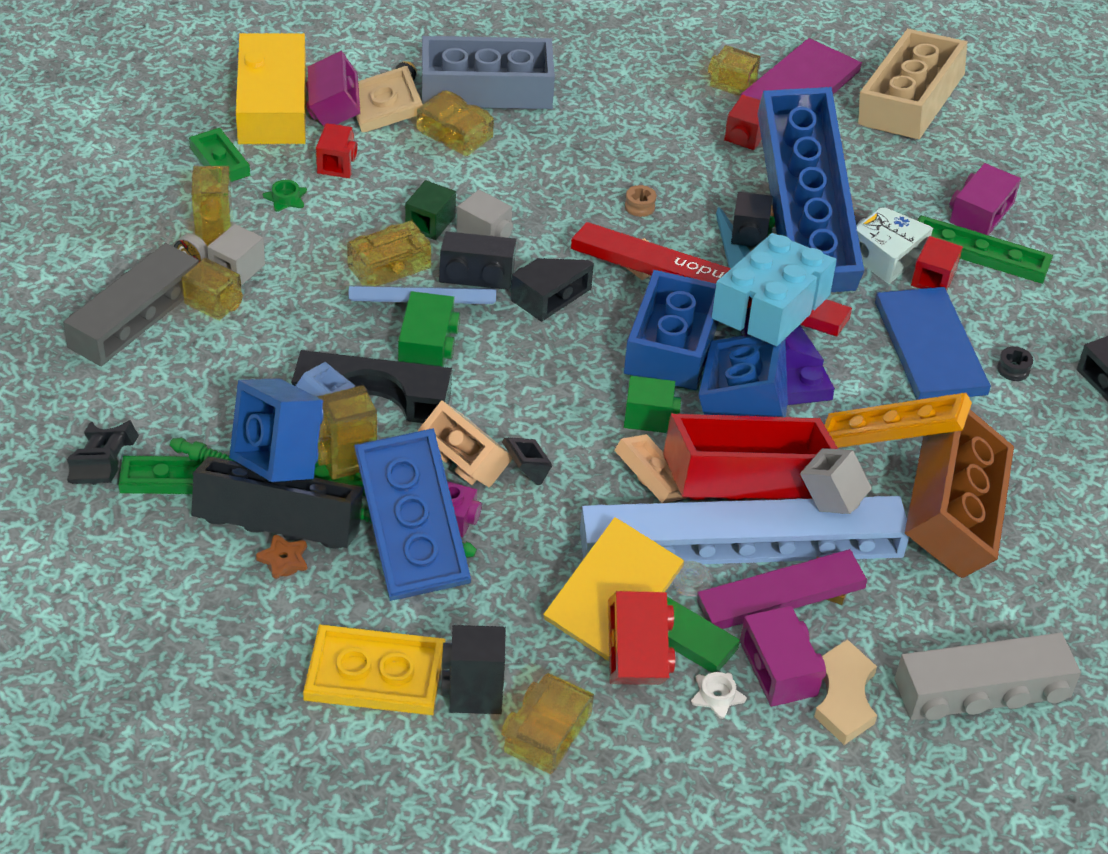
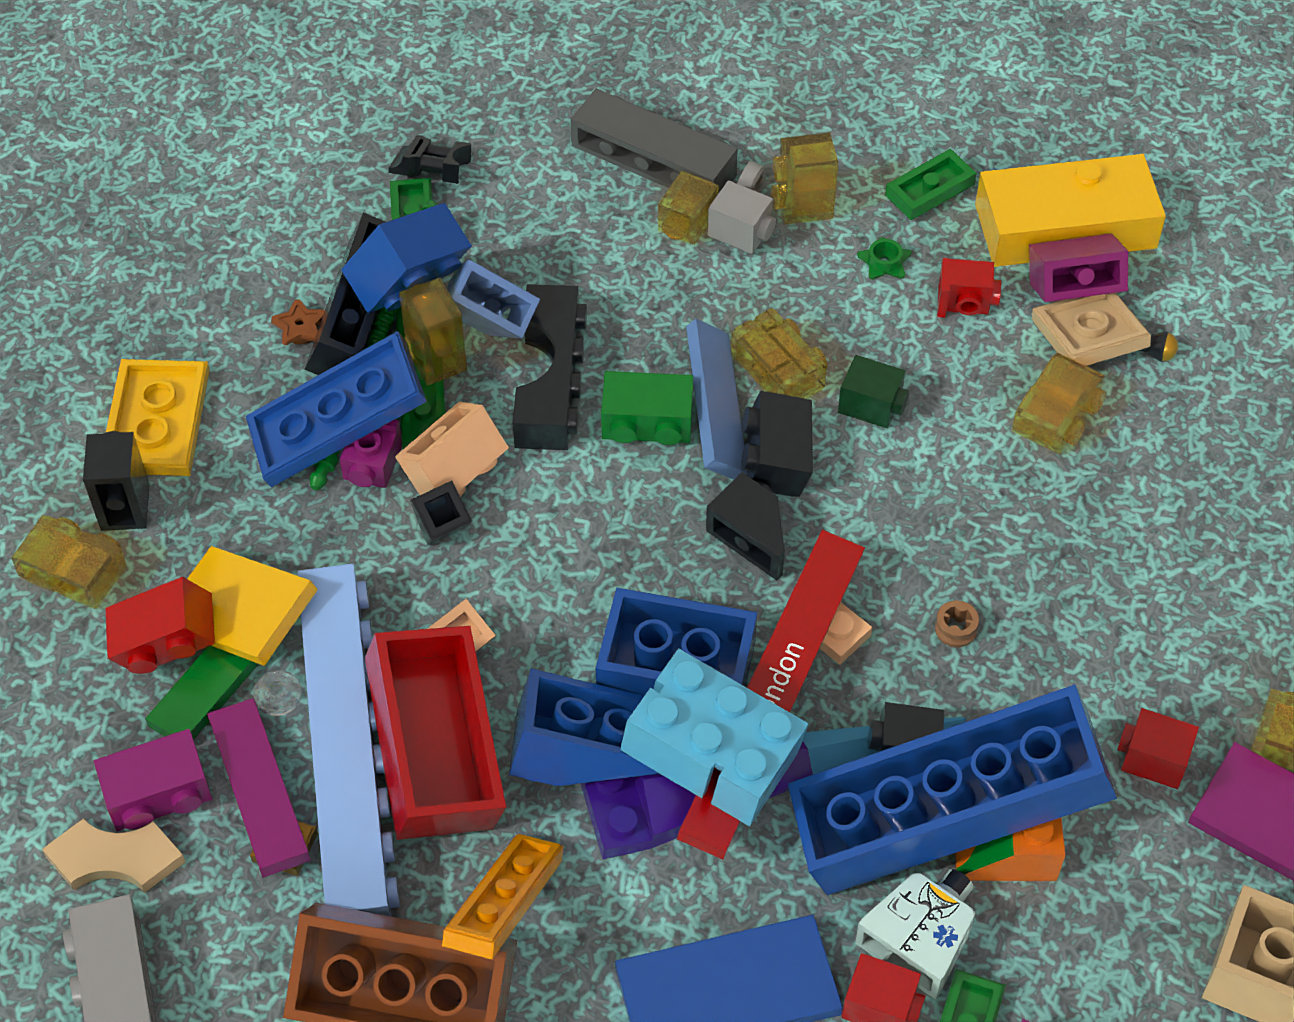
camera: 90 degrees right, 10 degrees up
(484, 216) = (865, 448): light grey brick -> none
(490, 70) = (1165, 423): sand blue brick -> none
(650, 404) = (549, 637): green brick -> none
(720, 683) = (117, 715): white plate -> none
(836, 481) = (365, 804): light grey brick -> none

